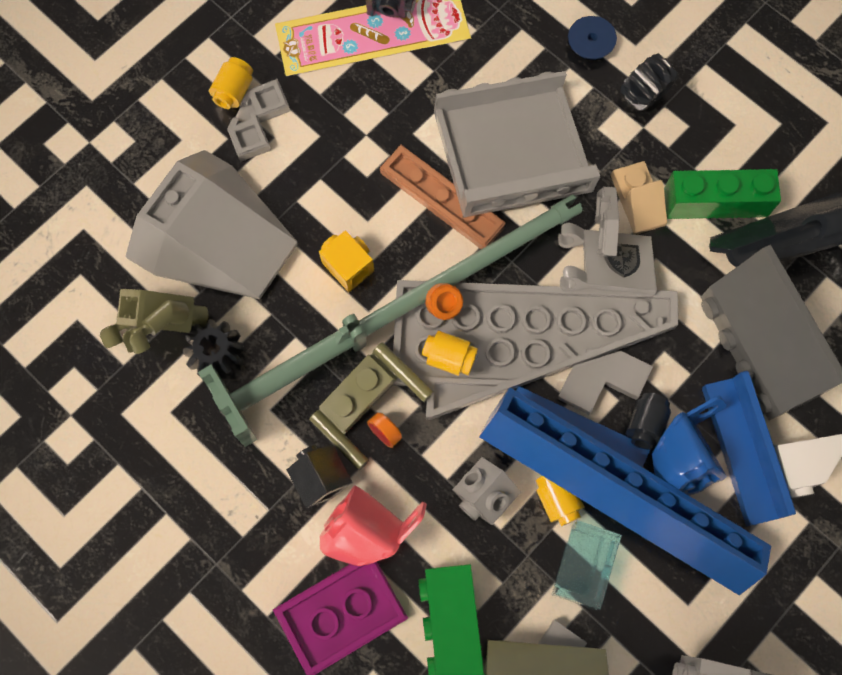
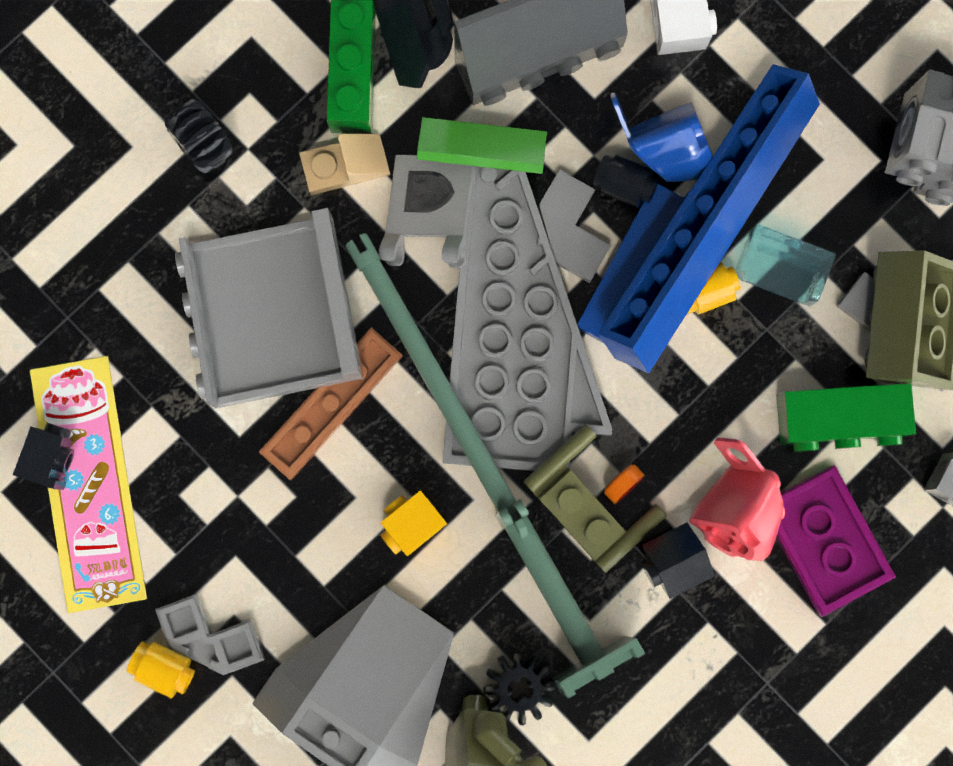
camera: 95 degrees left, 10 degrees up
(444, 301) = (477, 406): orange tile -> none
(449, 353) = (543, 402): yellow brick -> none
(486, 491) = (702, 371): light grey brick -> none
(592, 37) = (121, 200): dark blue piece -> none
(608, 218) = (373, 203): light grey tile -> none
(666, 296) = (482, 145): none -> bright green tile
(749, 451) = (659, 75): blue panel -> none

